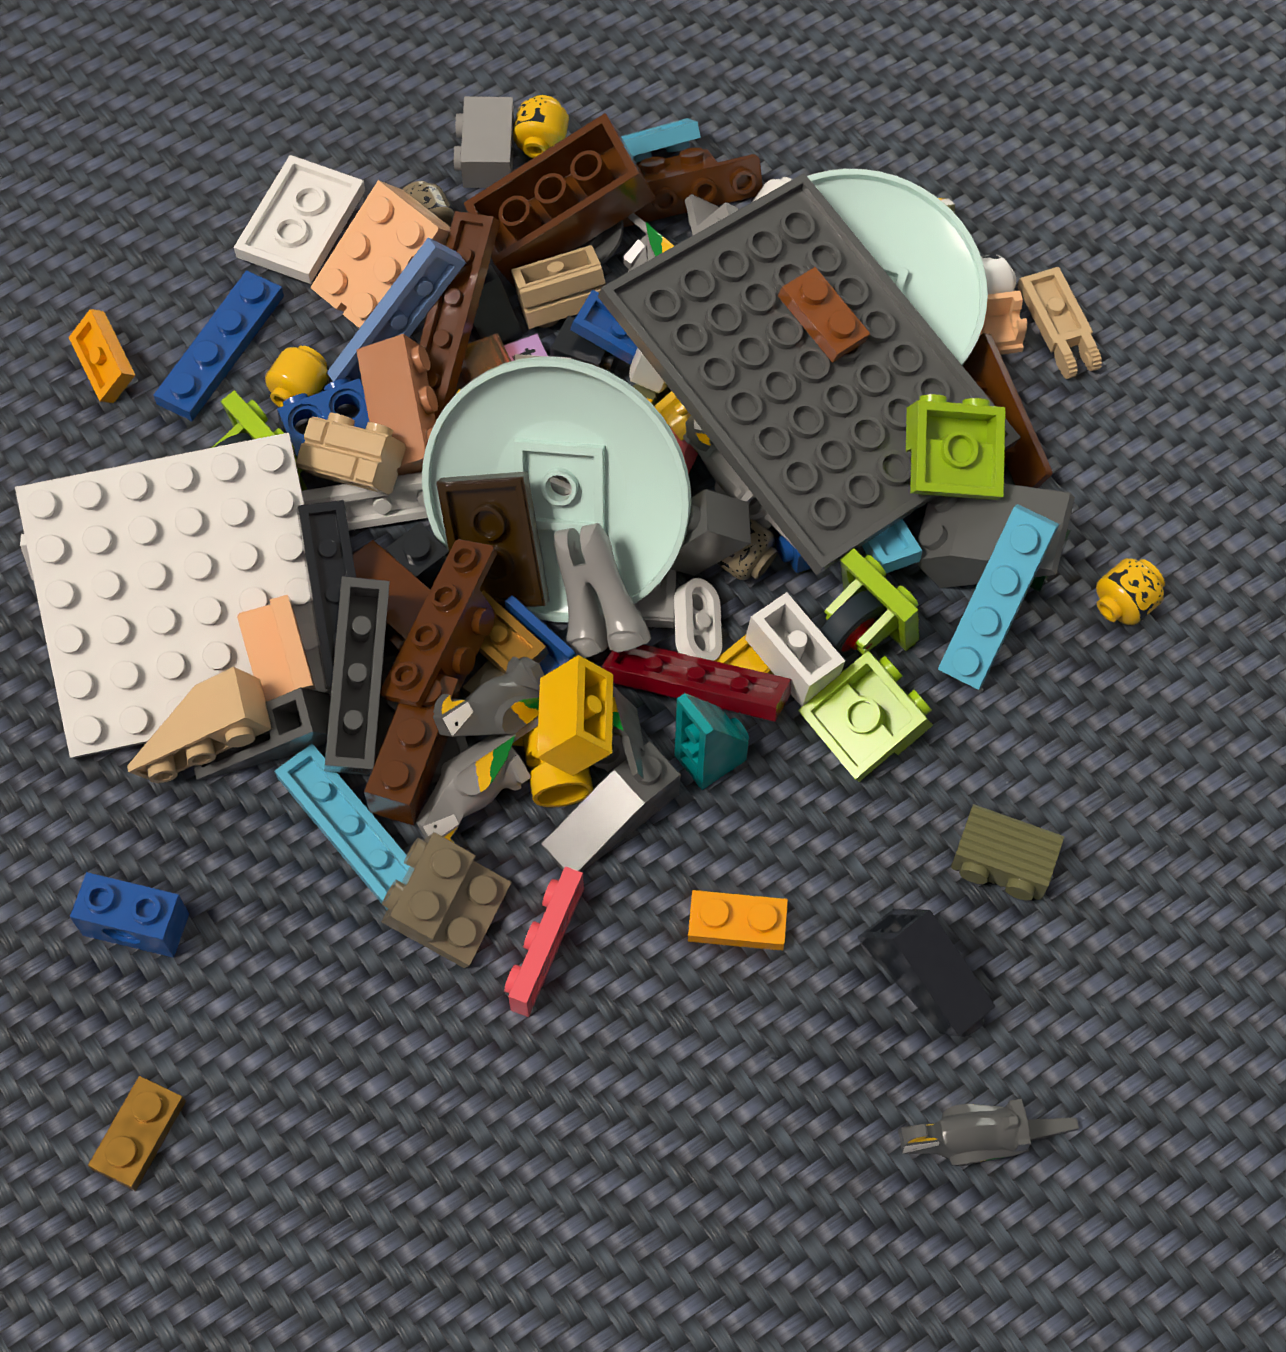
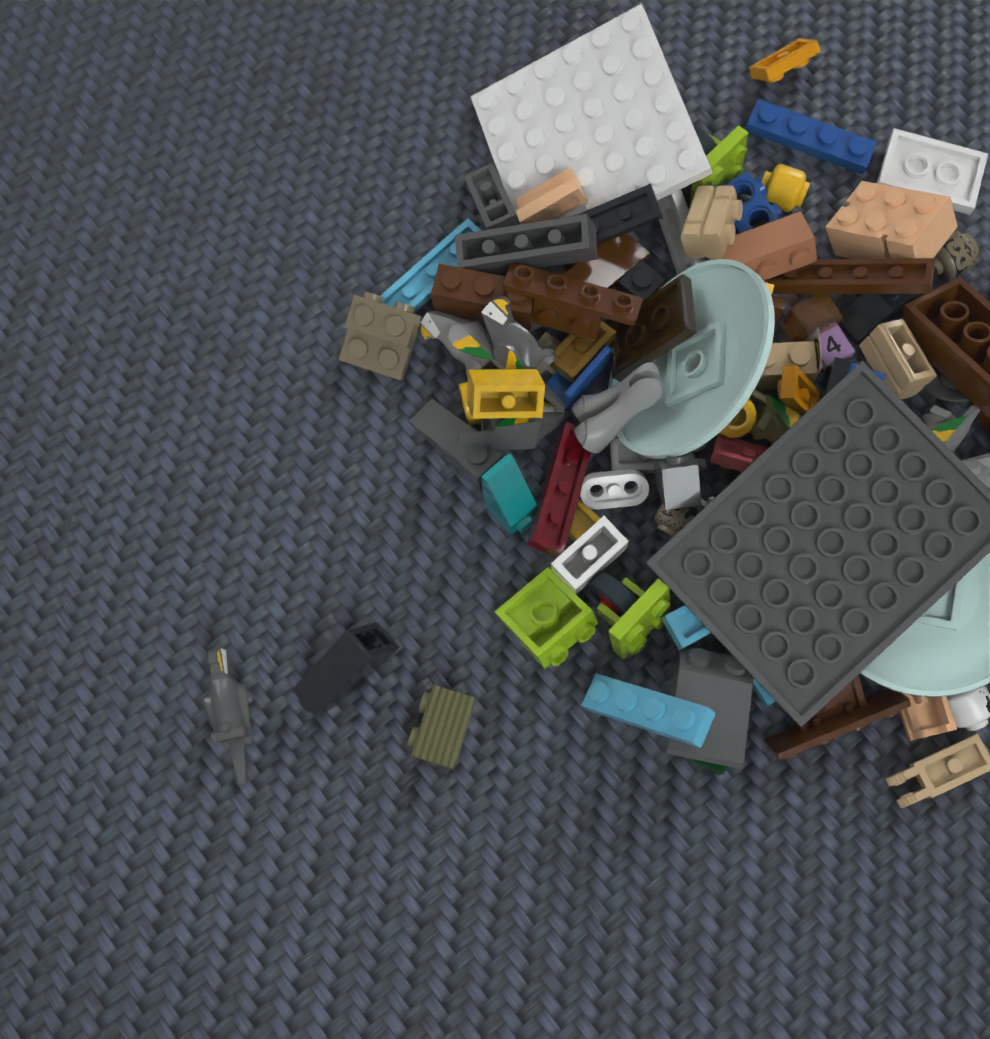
camera: 90 degrees right, 10 degrees up
(129, 914) = (359, 147): blue brick -> none
(137, 1133) = (222, 180): pearl gold plate -> none
(209, 720) = (490, 164): tan slope -> none
(403, 304) = (850, 239): medium blue plate -> none
(544, 940) = (356, 405): coral plate -> none
(737, 920) = (383, 536): light orange plate -> none
(823, 314) = (878, 547): dark orange plate -> none
(956, 447) = (768, 664): lime plate -> none
(1130, 591) = (678, 827): yellow head -> none

